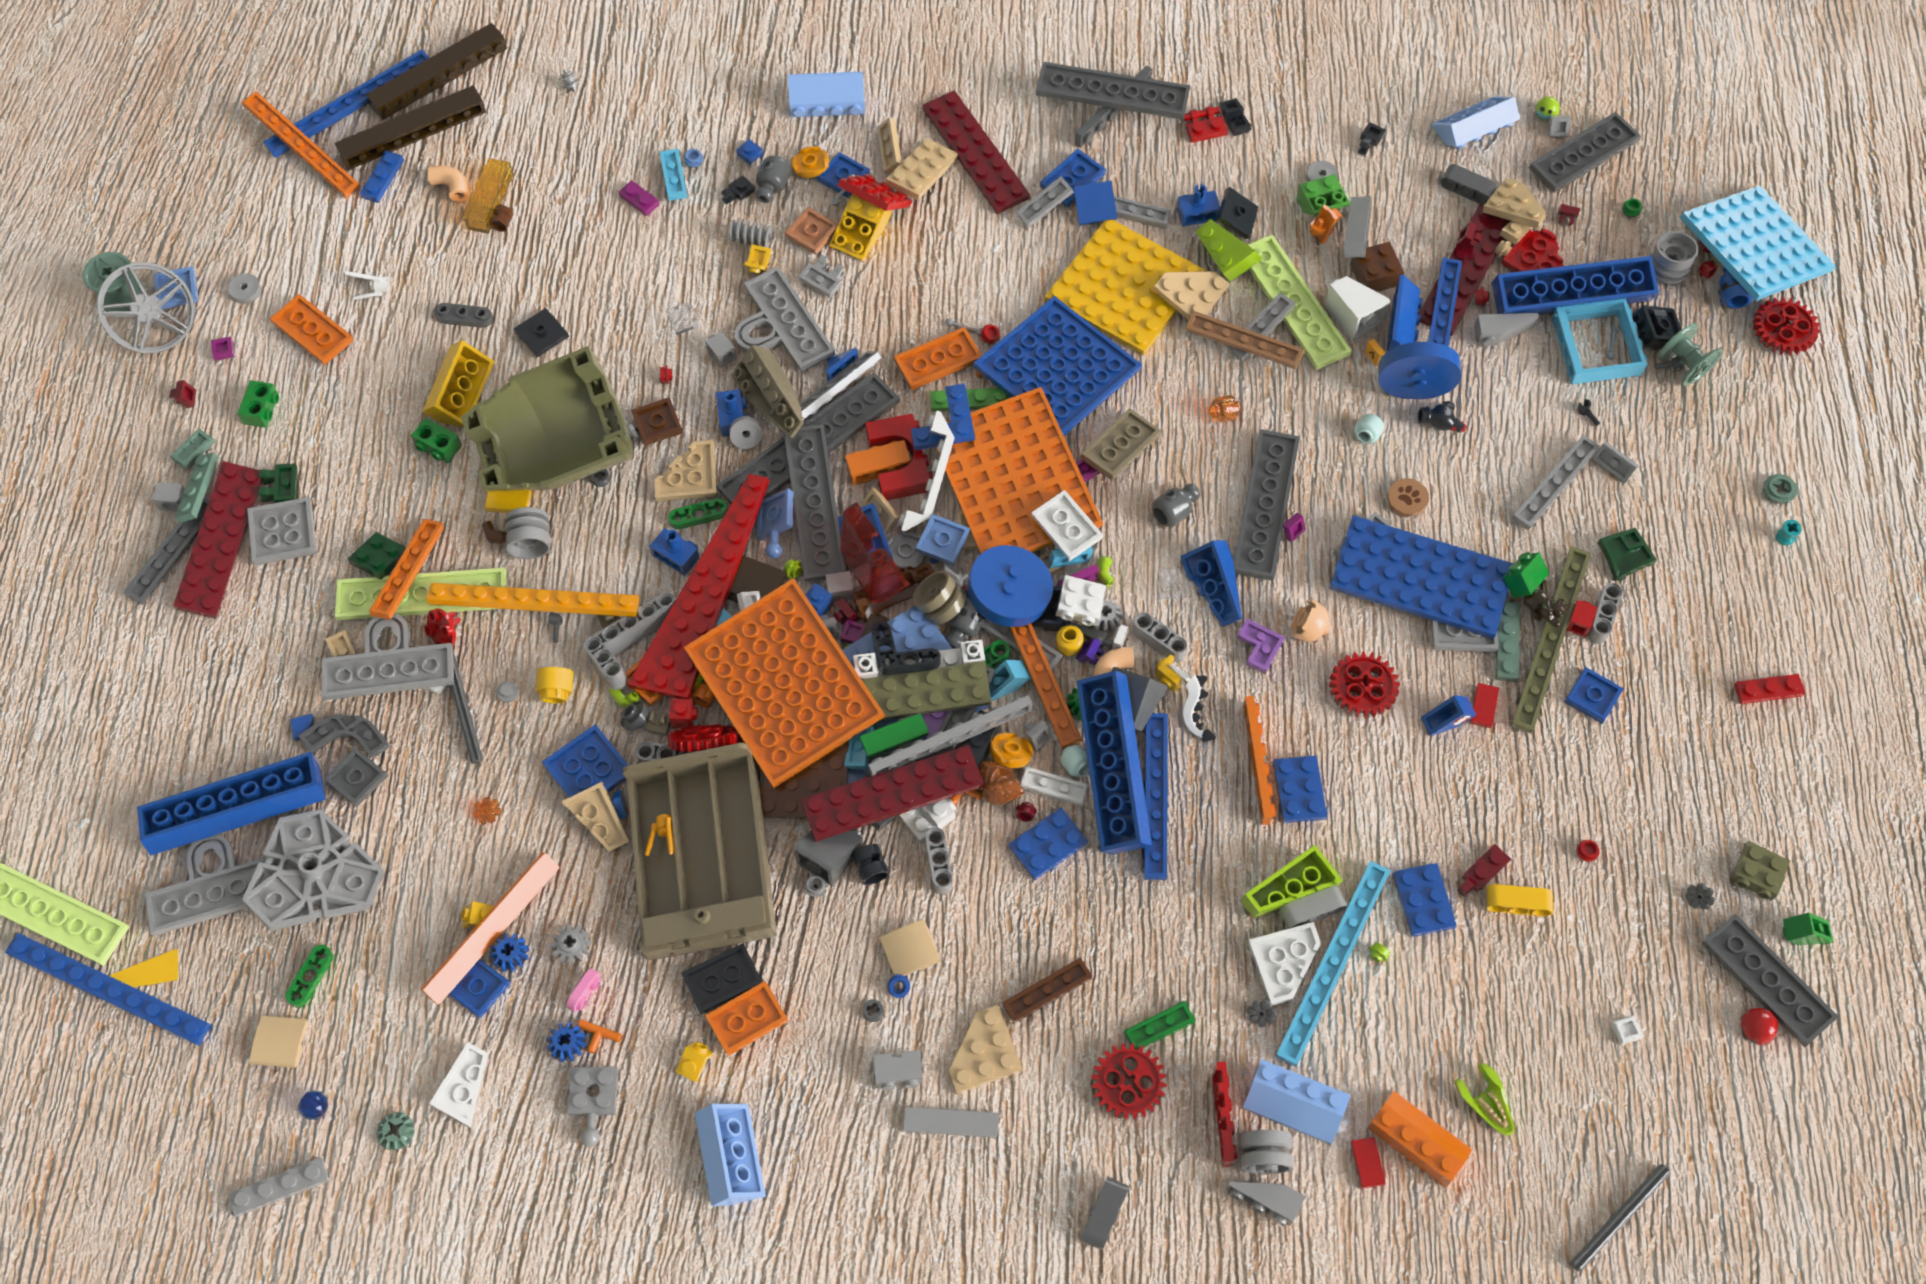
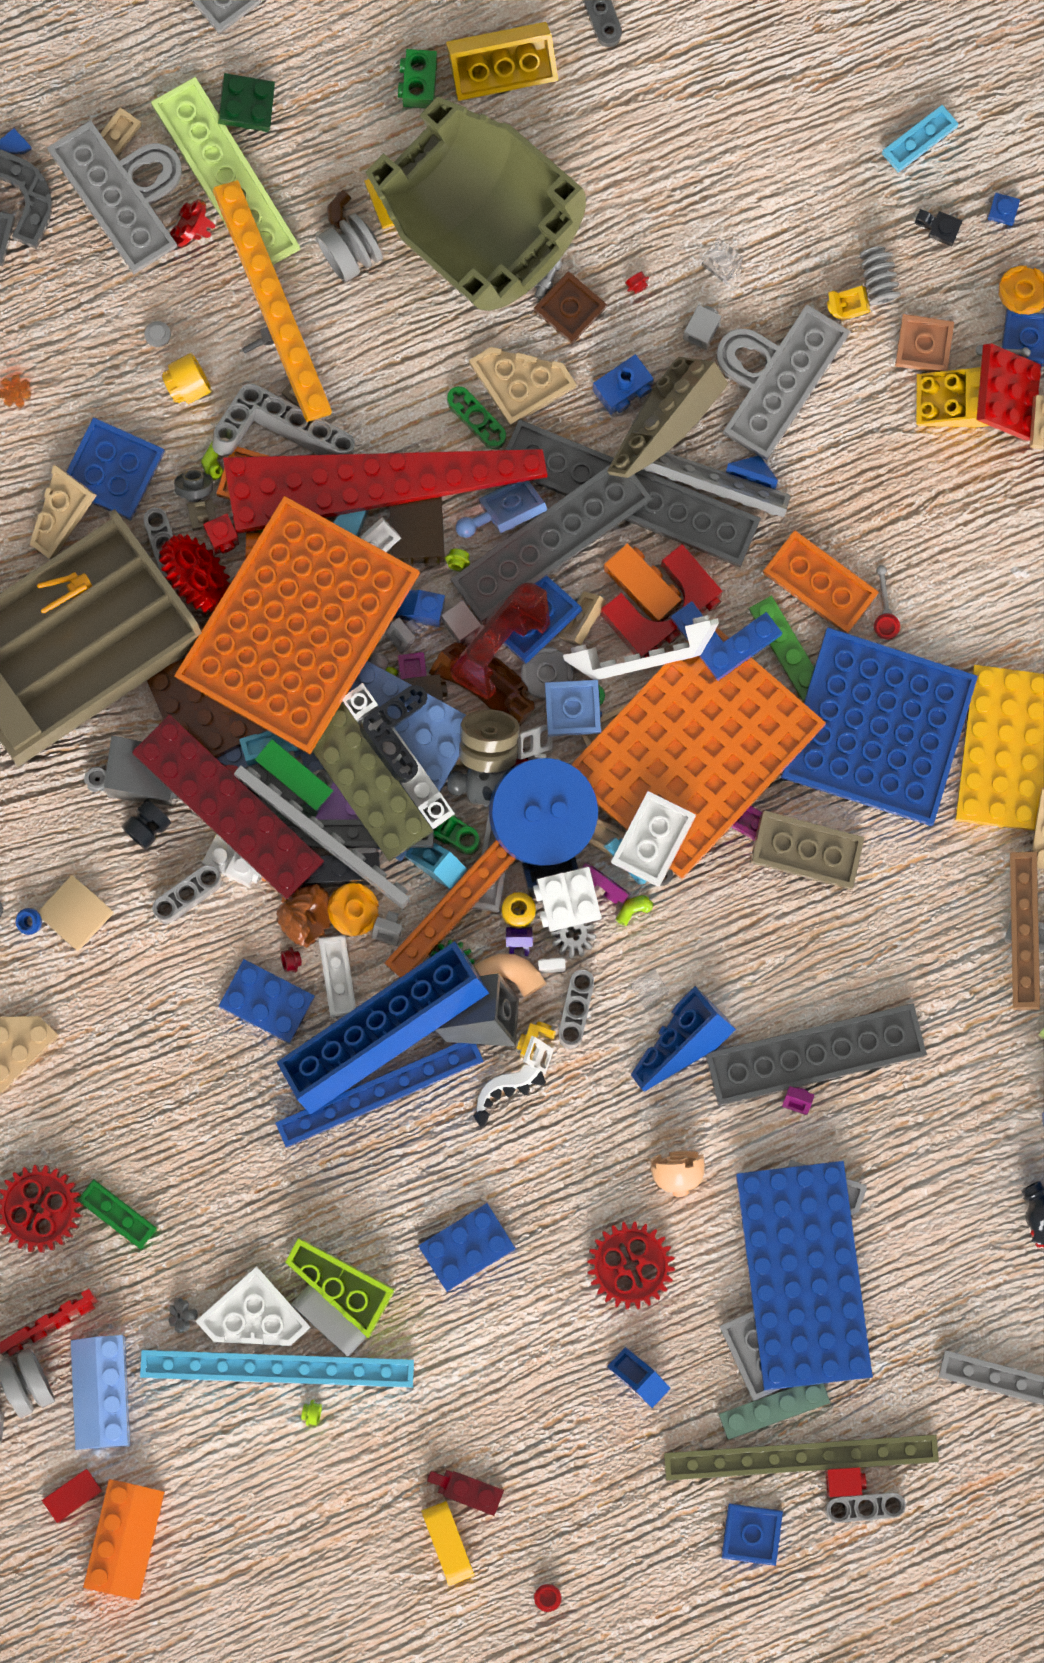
camera: 60 degrees right, 15 degrees up
(406, 569) = (241, 144): orange plate -> none
(465, 717) = (110, 304): dark grey axle -> none
(541, 332) = (622, 111): black plate -> none
(620, 804) = (88, 524): blue tile -> none
(639, 198) = (867, 116): magenta plate -> none
(674, 551) = (413, 419): blue brick -> none
(693, 158) = (957, 149): medium blue plate -> none
(745, 441) = (602, 415): light grey piece -> none
(772, 177) = (974, 258): dark grey piece -> none
(818, 279) = (859, 389): light grey plate -> none
(846, 612) = (433, 645): dark red tile -> none
(1047, 990) = (98, 1078): reddish brown plate -> none
(1075, 760) = (373, 982): light aqua head -> none
(1090, 633) = (542, 941): dark grey piece -> none
(1175, 504) = (757, 949): dark grey piece -> none
(1224, 408) = (921, 950): clear orange head -> none
(1260, 769) = (487, 1180): orange plate -> none
(1265, 642) = (630, 1132): medium lavender plate -> none
(1368, 428) = (980, 1132): light aqua head -> none
(1408, 497) = (911, 1217): medium nougat tile -> none
(1424, 899) = (400, 1438): blue plate -> none
(1484, 705) = (675, 1413): red tile -> none
(1490, 1104) = (194, 1599): lime animal -> none
(1526, 574) = (863, 1395): green brick -> none
(1543, 606) = (834, 1429): dark brown animal -> none
(1626, 553) = (962, 1504): dark green plate -> none

